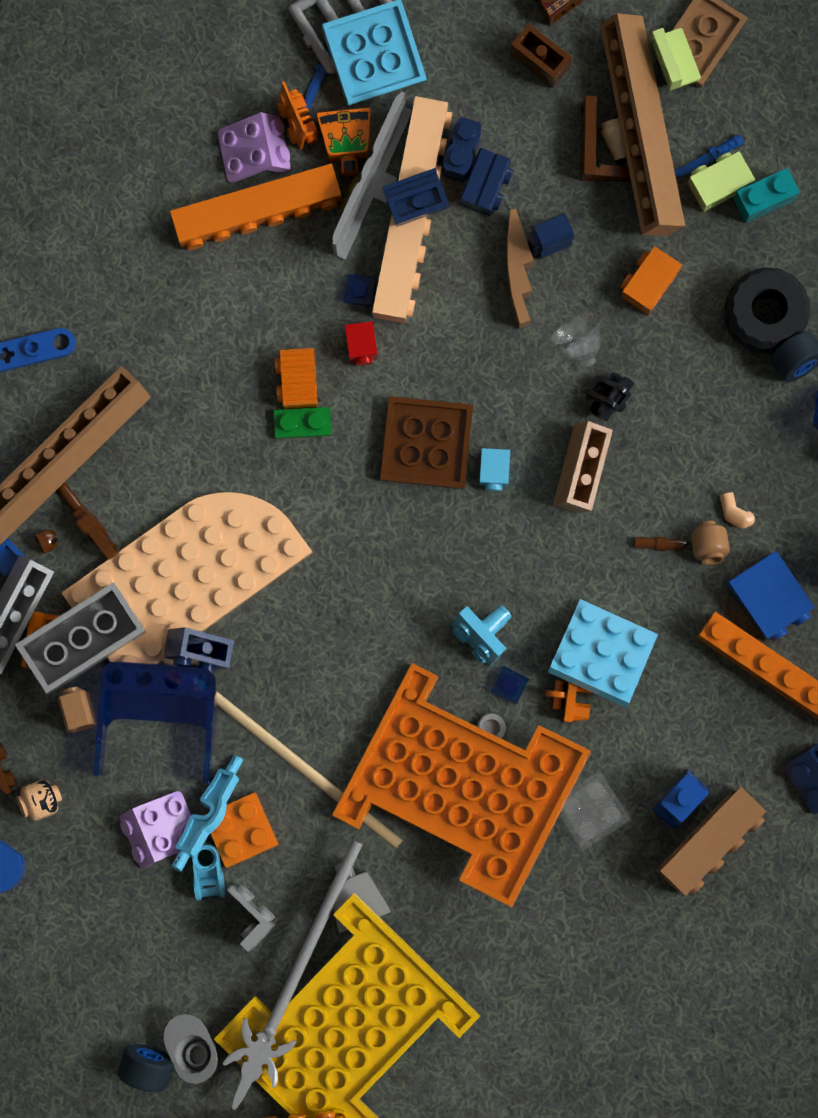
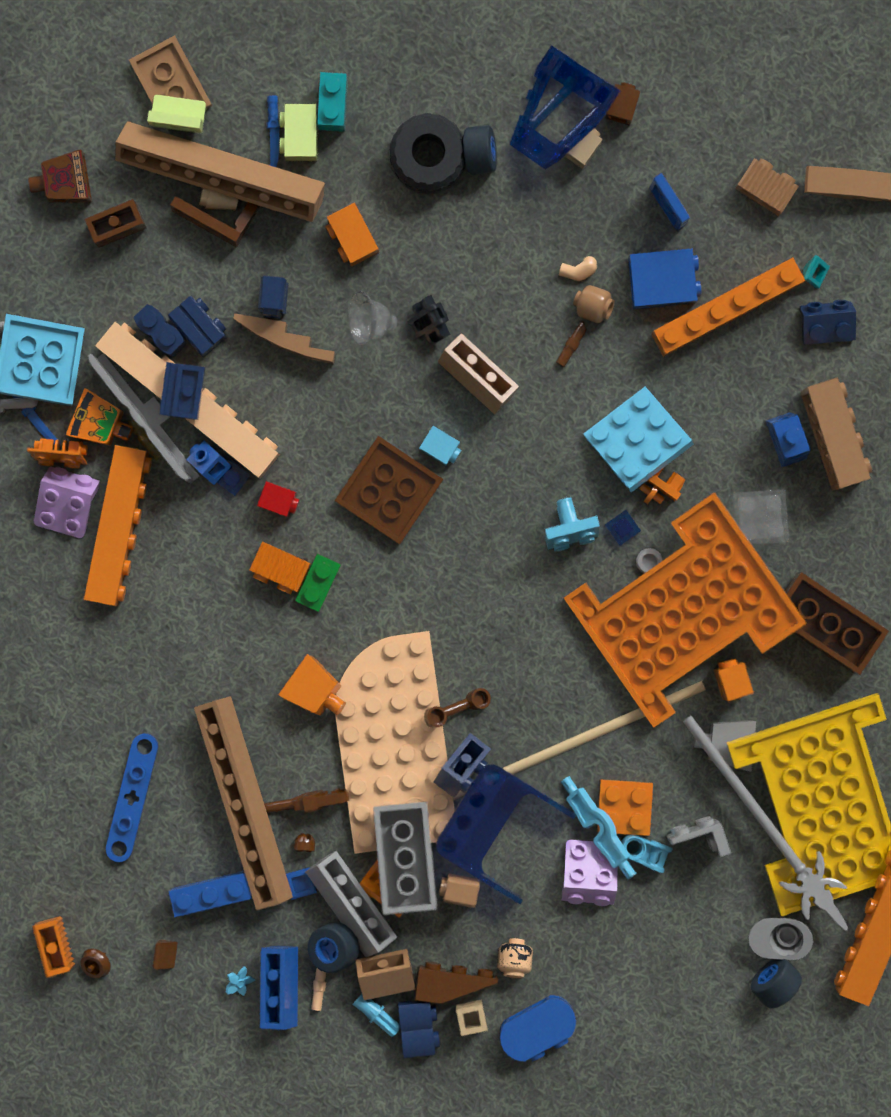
camera: 65 degrees left, 5 degrees up
(199, 469) = (313, 688): none -> orange torso
(233, 599) = (437, 716): none -> reddish brown bar
(363, 252) = (204, 458): none -> blue brick
(419, 867) = (732, 679): none -> orange brick
(525, 938) = (834, 624): none -> reddish brown brick

